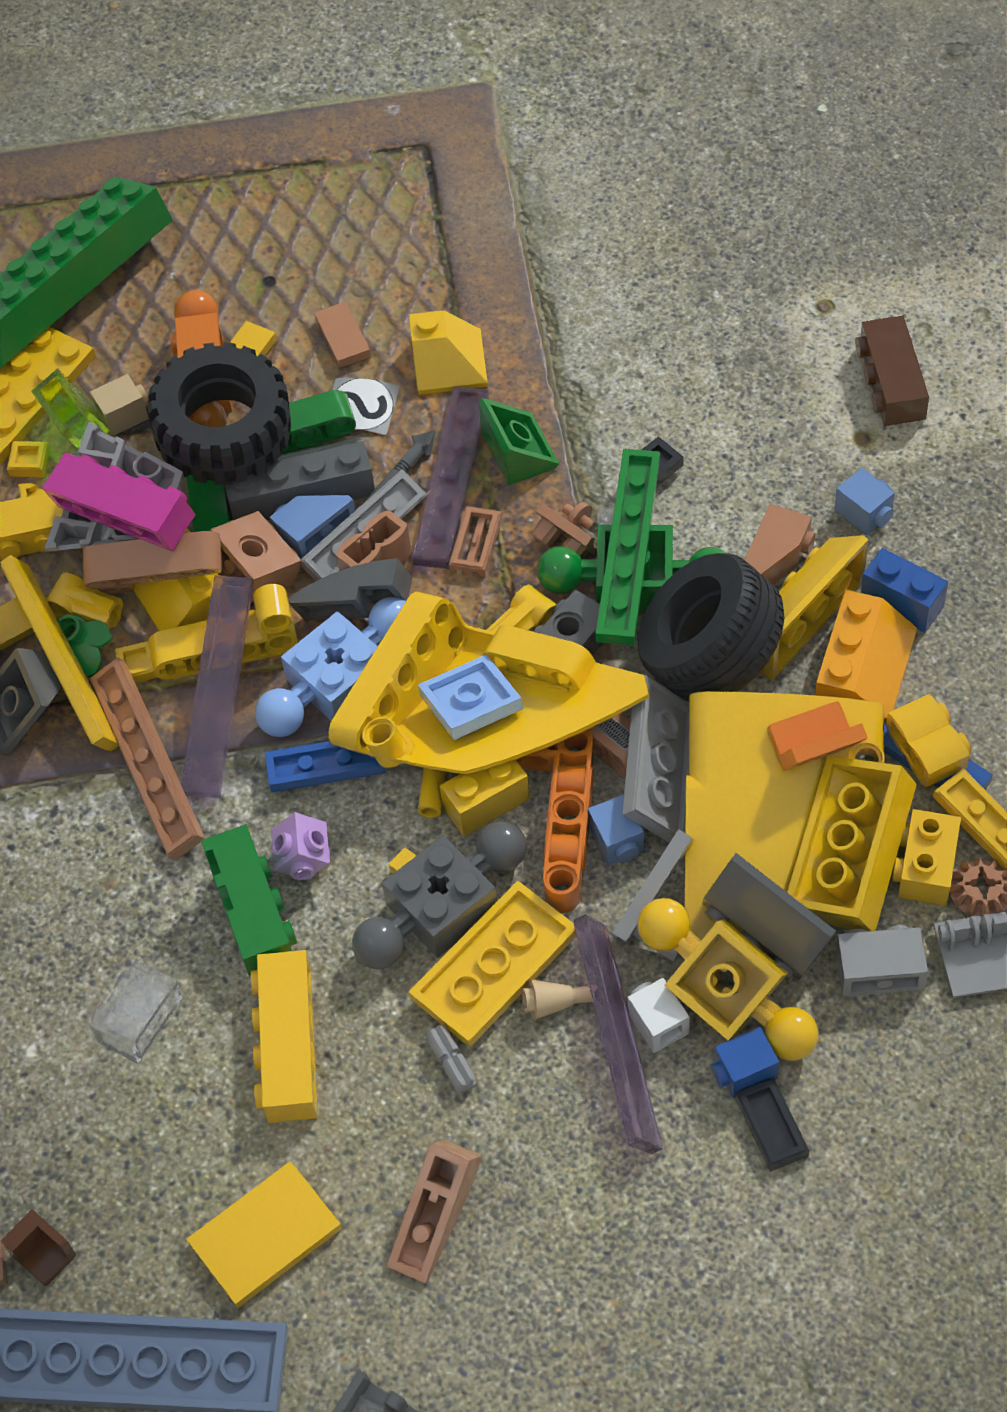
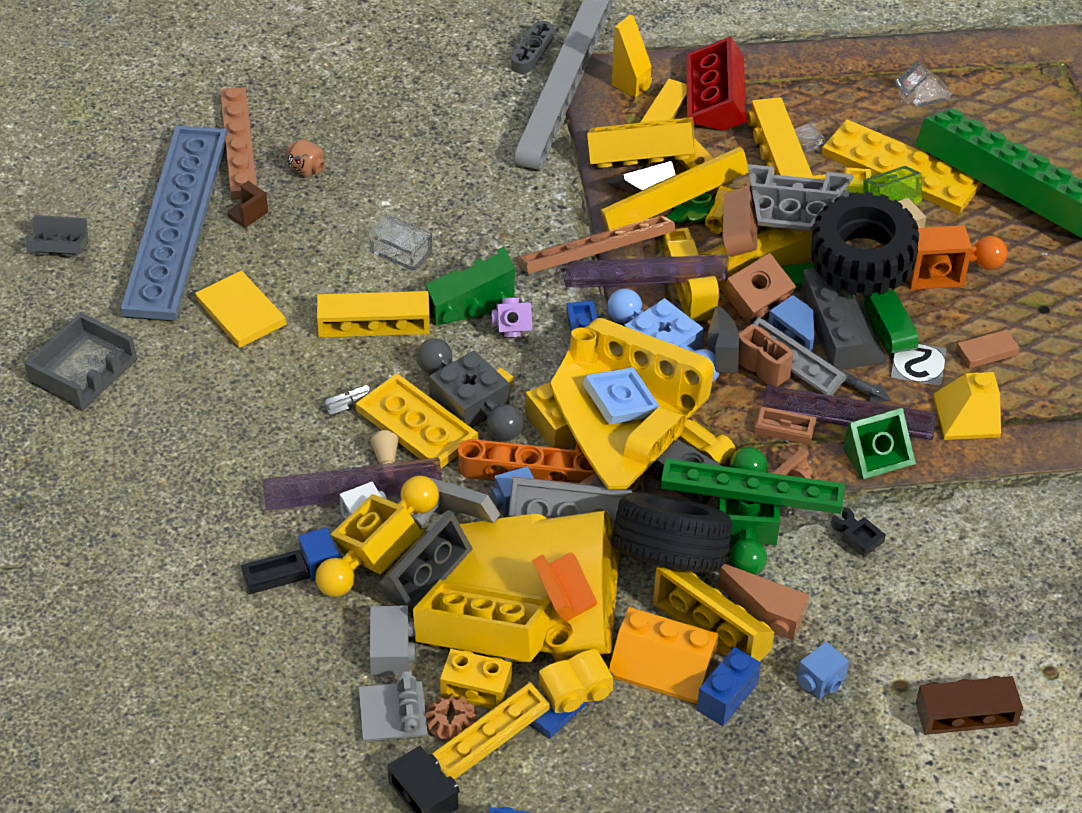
camera: 85 degrees right, 10 degrees down
(119, 500) = (774, 186): dark pink brick -> none
(254, 338) = (976, 297): yellow tile -> none
(433, 1208) = (243, 385): nougat slope -> none

